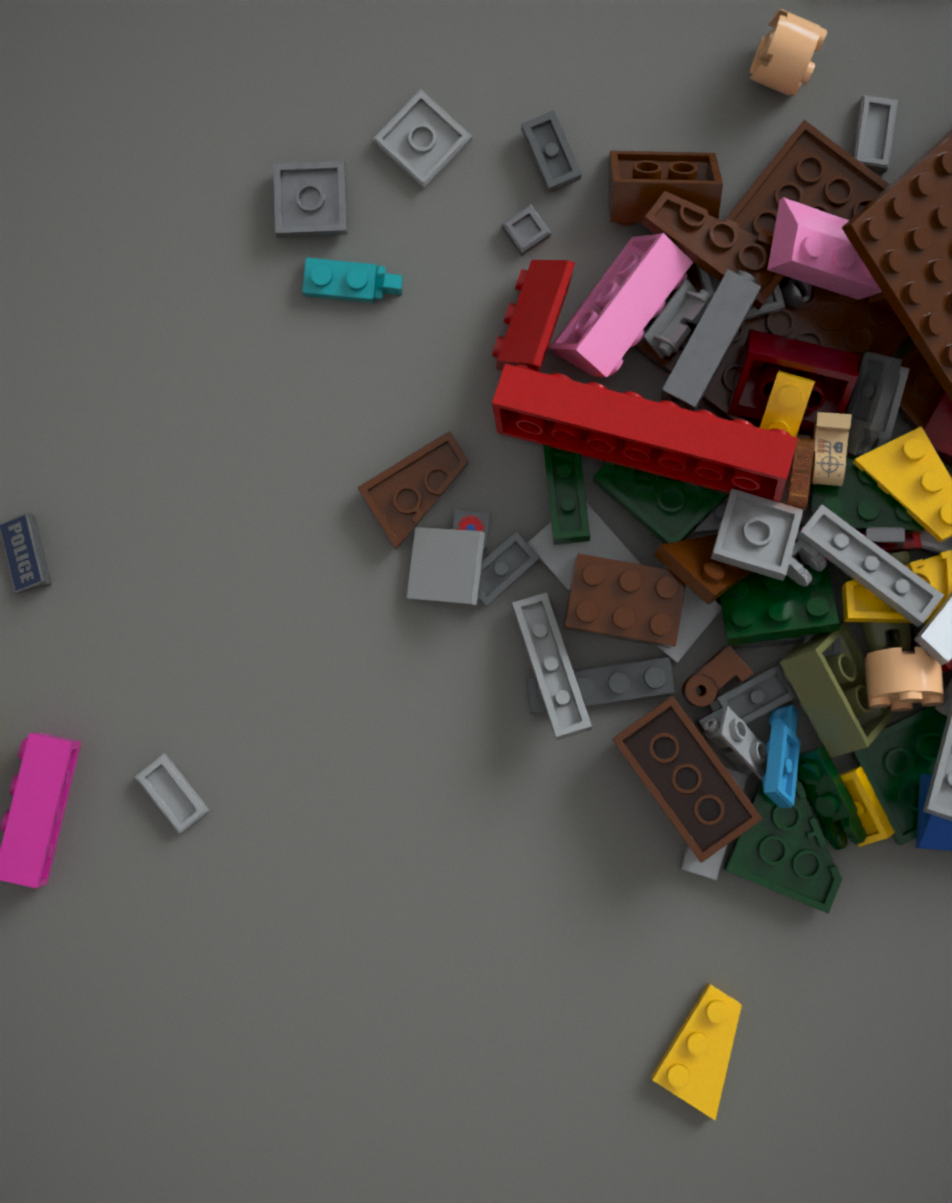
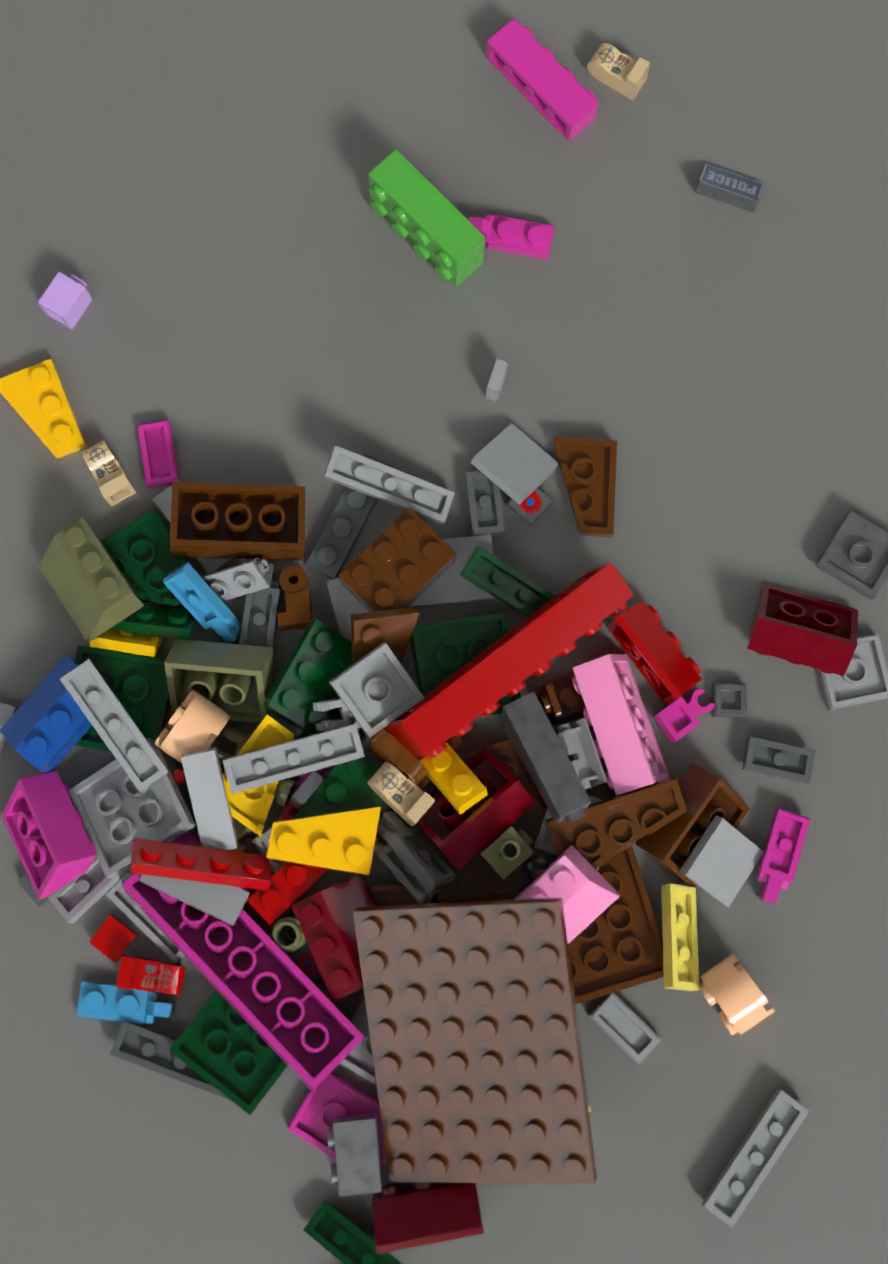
camera: 125 degrees right, 5 degrees down
(172, 793) = (488, 175): light grey tile -> none
(217, 726) = (515, 235): none -> dark pink hinge
(265, 817) = (425, 219): none -> bright green brick
(348, 280) = (779, 542): teal hinge -> none
(376, 639) = (496, 380): none -> light grey tile
(419, 209) = (804, 630): none -> dark red slope
(584, 255) = (680, 717): none -> dark pink plate
(586, 1109) = (65, 299): none -> lavender brick
(632, 96) = (781, 853): none -> dark pink hinge
(637, 374) = (560, 701): none -> reddish brown bracket
(668, 908) = (158, 453): none -> dark pink tile
(678, 140) = (721, 861): none -> light grey tile
(721, 941) = (108, 473): none -> tan leg
(770, 132) = (680, 937): none -> light yellow plate
(809, 322) = (508, 851): none -> olive brick
(840, 875) = (88, 580): none -> olive slope

